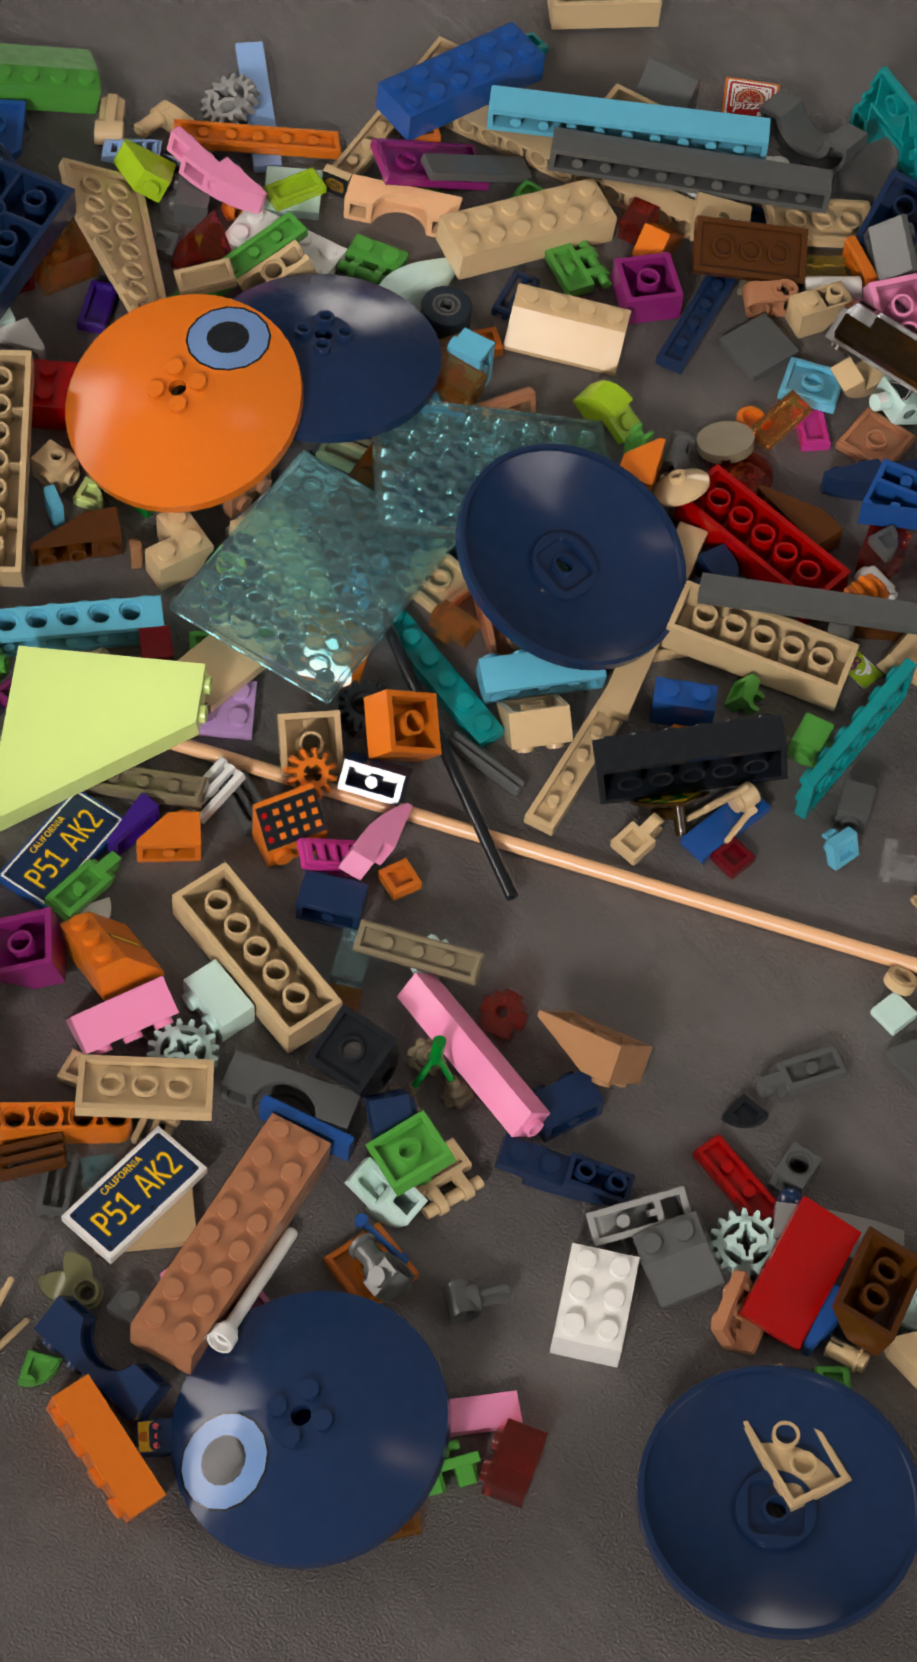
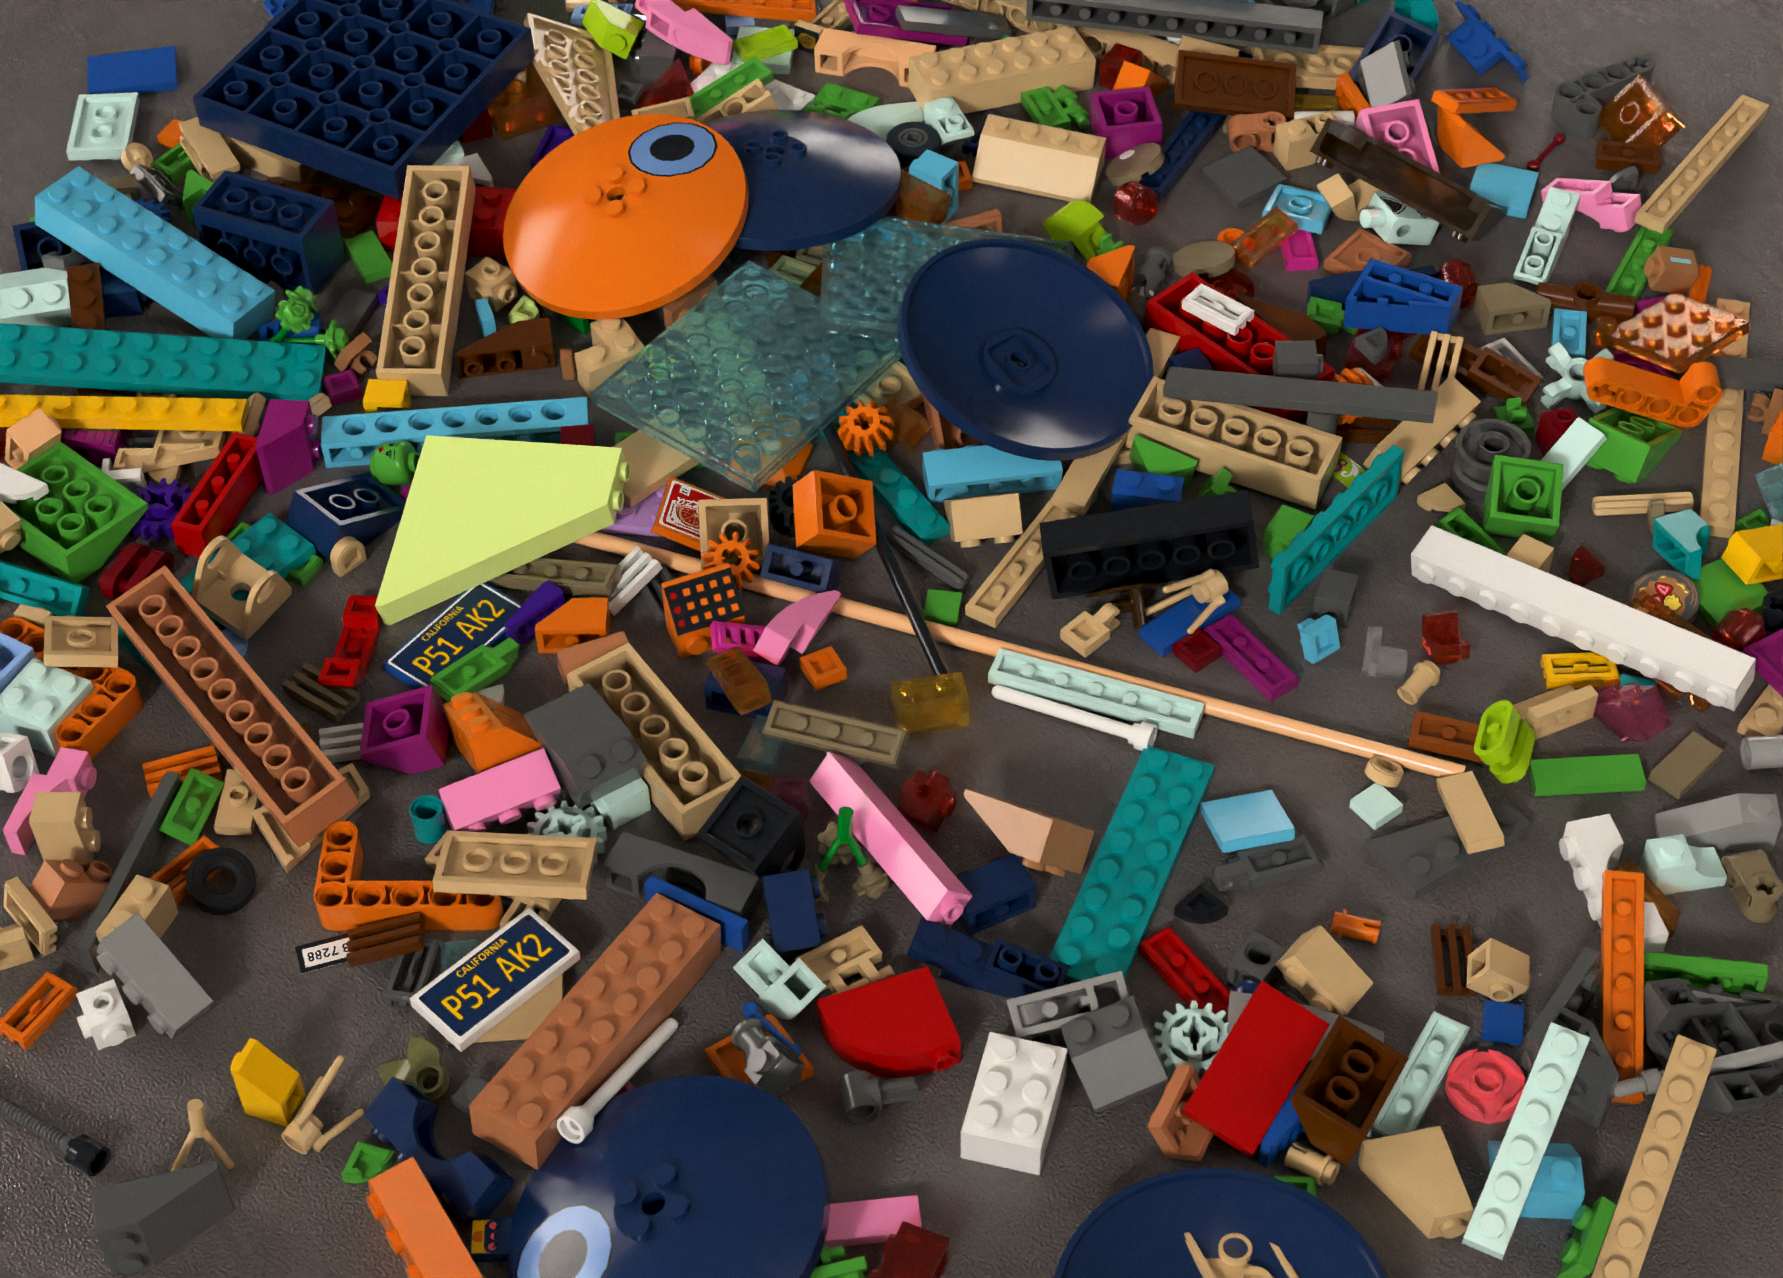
camera: 10 degrees right, 10 degrees down
(56, 1047) = (428, 818): none -> teal beam
(184, 871) = (581, 654): none -> nougat brick
(199, 968) = (587, 744): none -> dark grey slope
(257, 718) = (678, 513): none -> tile
(337, 915) = (741, 683): none -> clear orange slope
(380, 1009) = (793, 791): none -> clear pink plate
(410, 1153) = (807, 933): bright green tile -> none
(436, 628) = (874, 437): none -> orange gear
(478, 284) = (948, 121): none -> light aqua slope
(485, 1234) = (892, 1026): none -> red brick
(499, 919) = (930, 703): none -> clear yellow brick
(503, 814) = (943, 607): none -> bright green tile
(645, 903) = (1096, 693): none -> light aqua plate
(657, 334) = (1134, 163): none -> dark tan tile
(659, 378) = (1135, 203): none -> clear red head
(681, 487) = (1152, 291): tan dish -> none
(684, 945) = (1137, 734): none -> white piece
(684, 1075) = (1132, 865): none -> teal plate
(693, 666) = (1157, 459): none -> bright green slope
(740, 509) = (1200, 304): none -> white tile
(781, 865) = (1252, 658): none -> magenta tile
(783, 1031) = (1247, 821): none -> medium azure tile
(818, 568) = (1297, 359): none -> dark grey brick
(840, 504) = (1327, 315): none -> bright green plate
(854, 1181) = (1324, 972): none -> tan brick
(878, 1132) = (1355, 927): none -> orange pin

